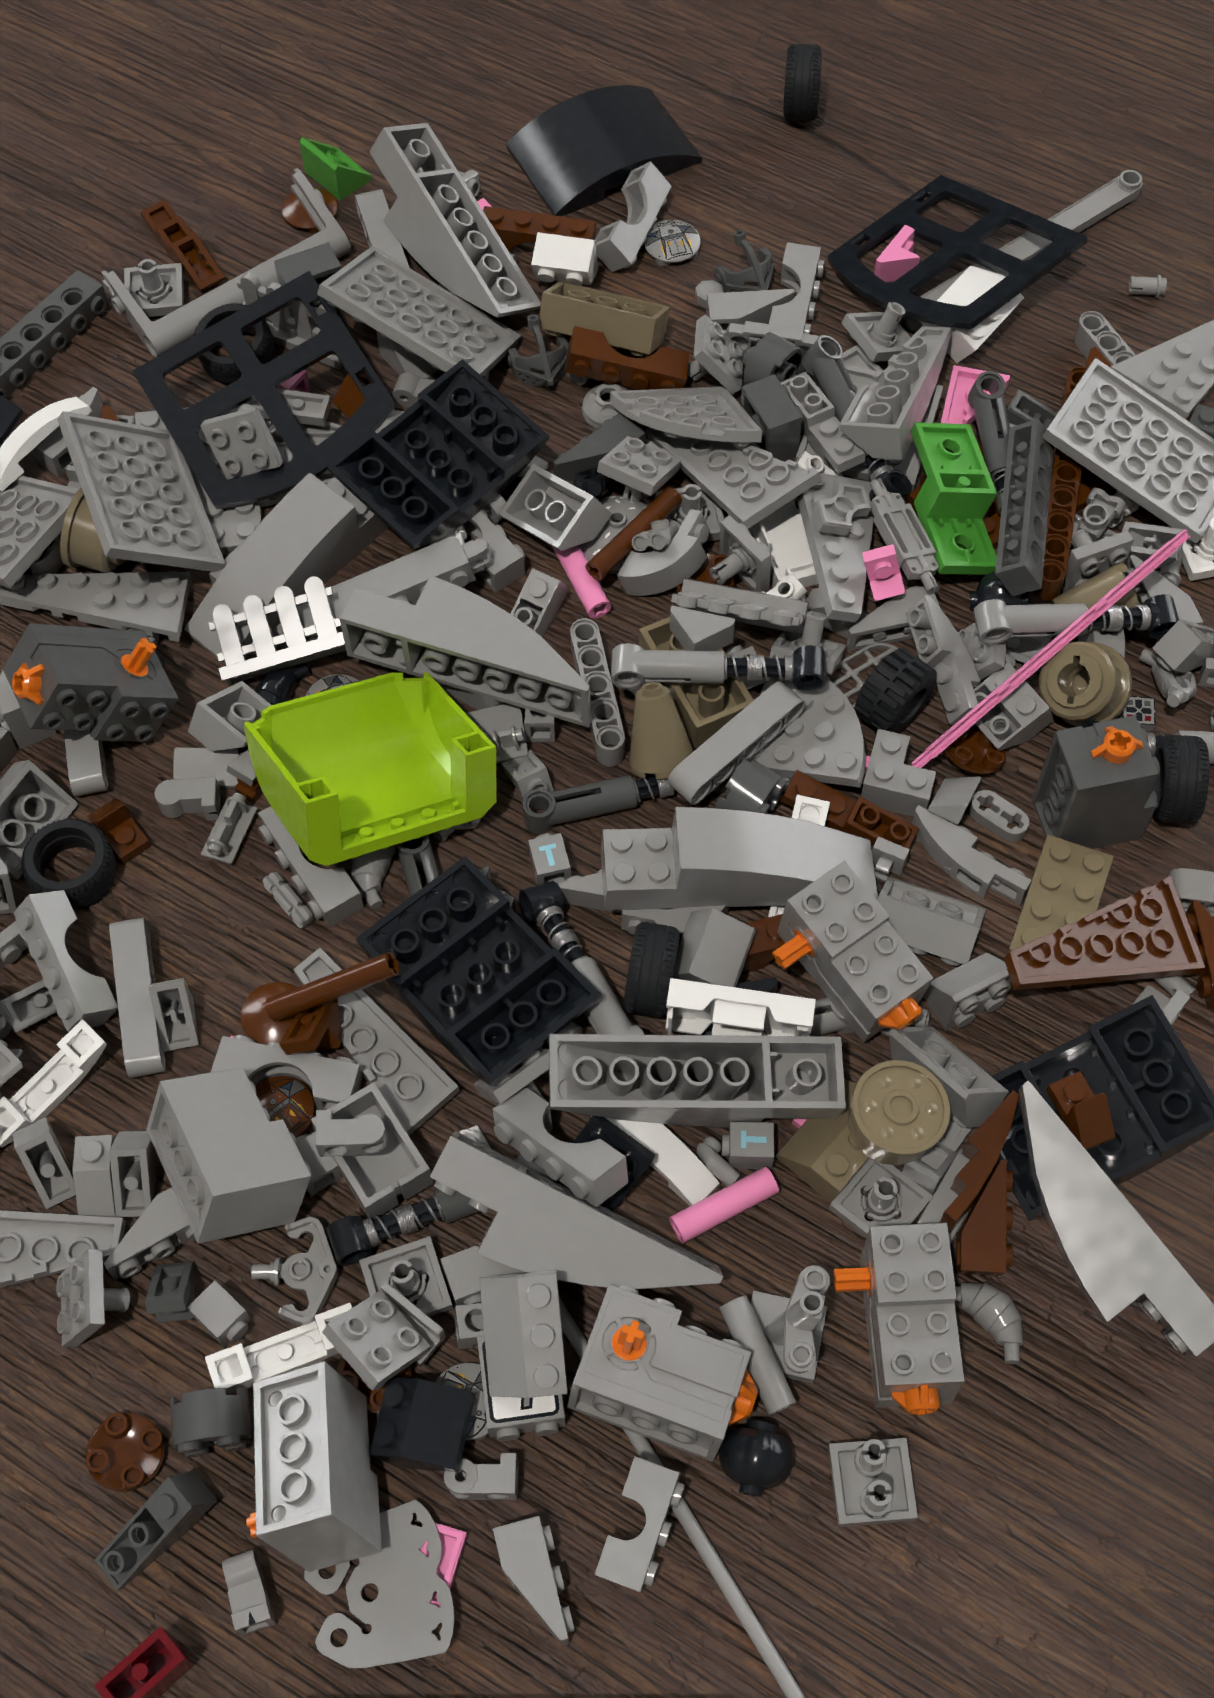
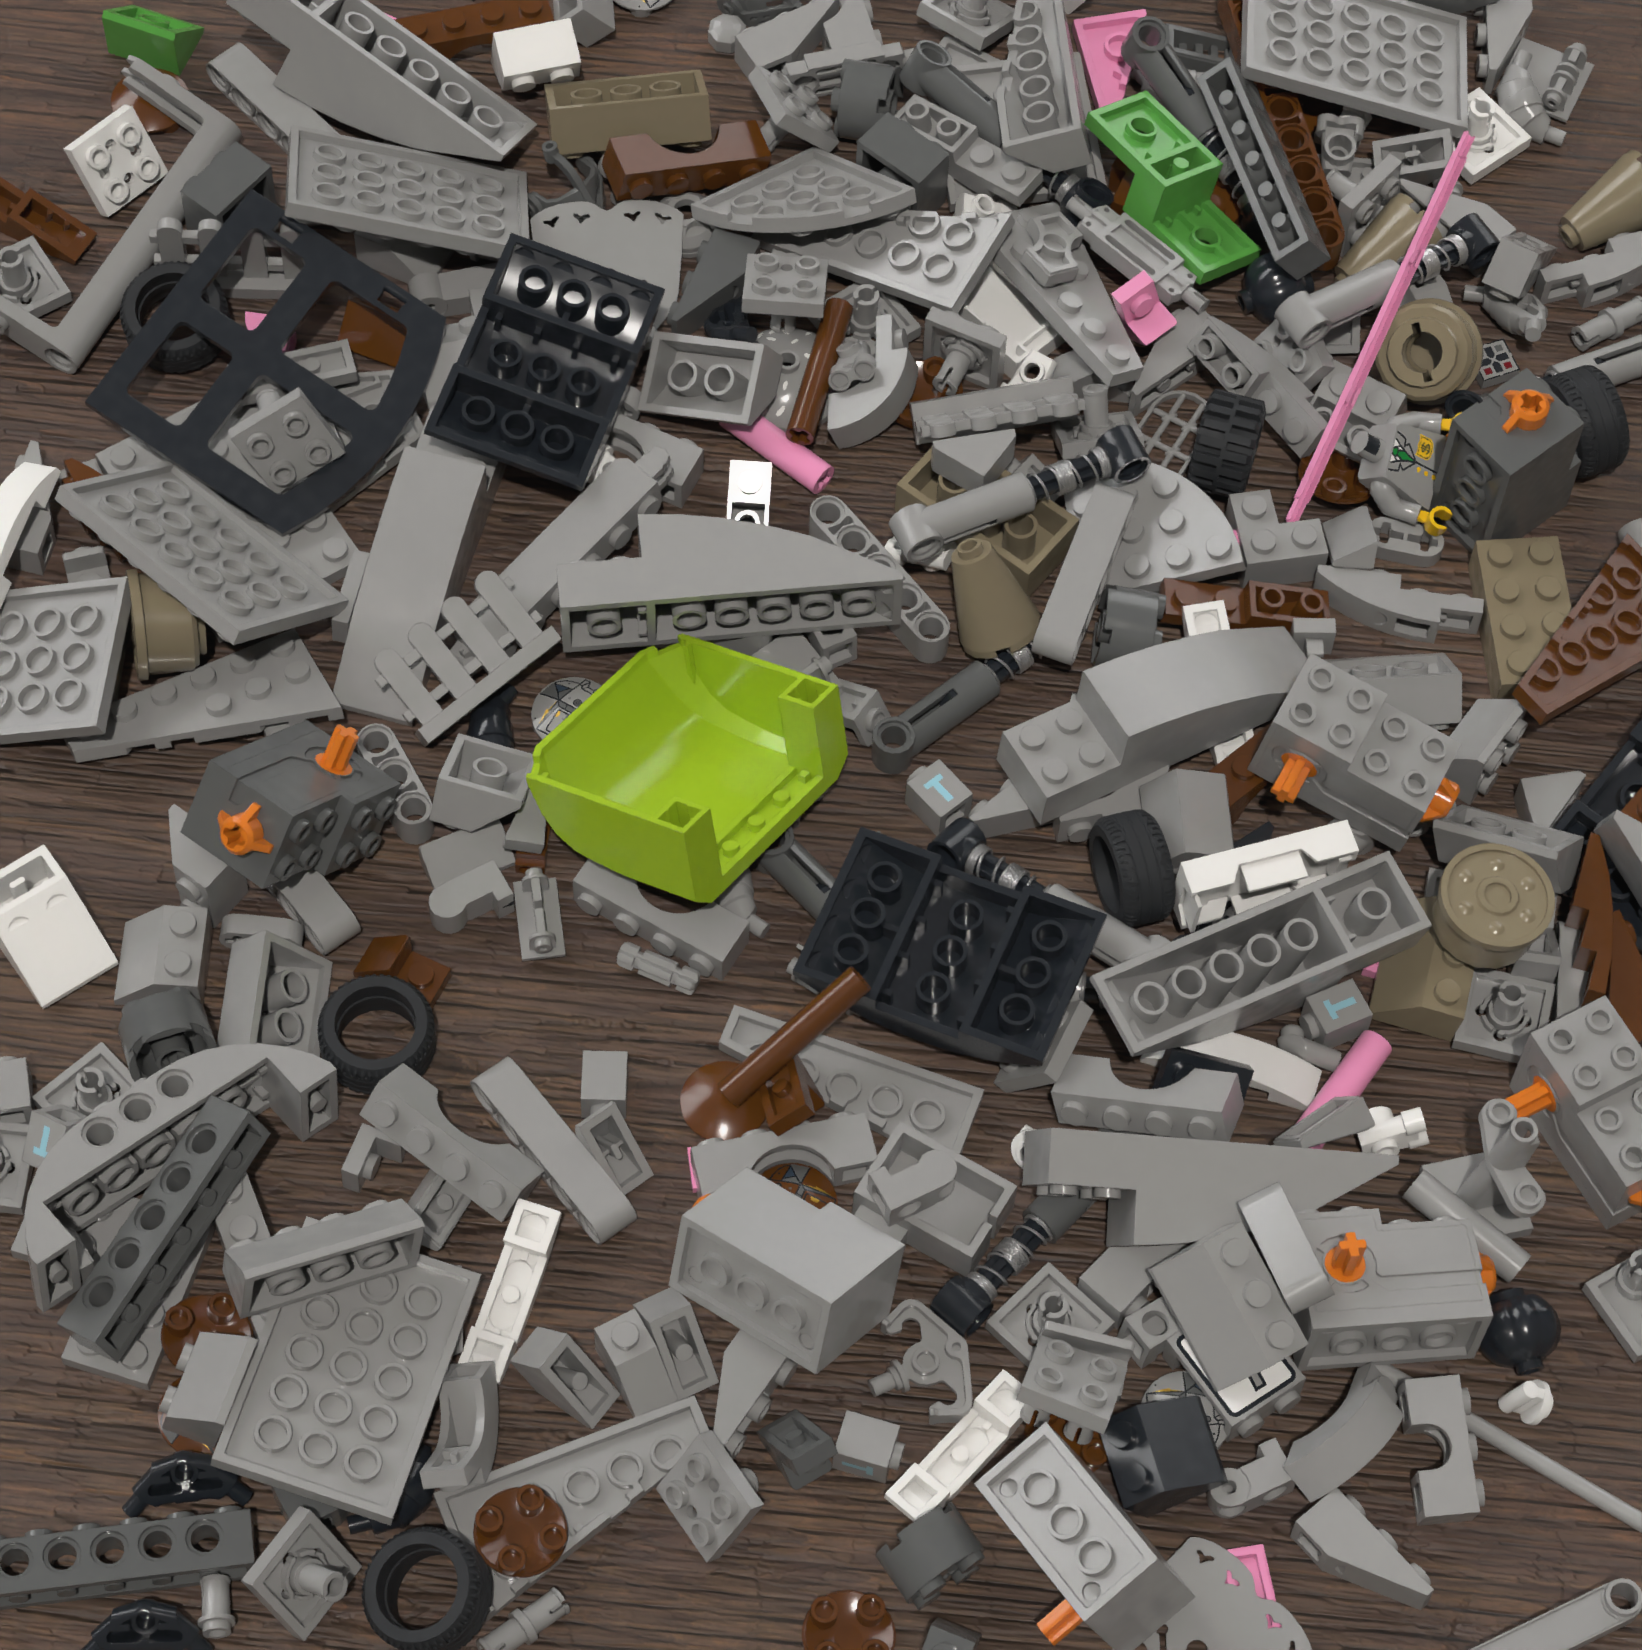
camera: 30 degrees left, 0 degrees up
(50, 766) = (240, 926): none -> light grey beam
(187, 687) = (411, 795): none -> light grey beam
(199, 965) = (604, 1081): none -> light grey brick
(241, 221) = (105, 158): none -> white plate
(547, 397) = (610, 239): none -> light grey piece
(571, 1481) = (1348, 1437): none -> light grey arch
(584, 1310) = (1286, 1248): none -> light grey beam
(691, 1226) = (1330, 1122): none -> light grey slope
(738, 1253) = (1395, 1132): none -> white plate
(738, 1518) = (1530, 1400): none -> white plate
(1003, 1049) = (1547, 797): none -> light grey slope
(1017, 759) = (1402, 466): none -> light grey torso

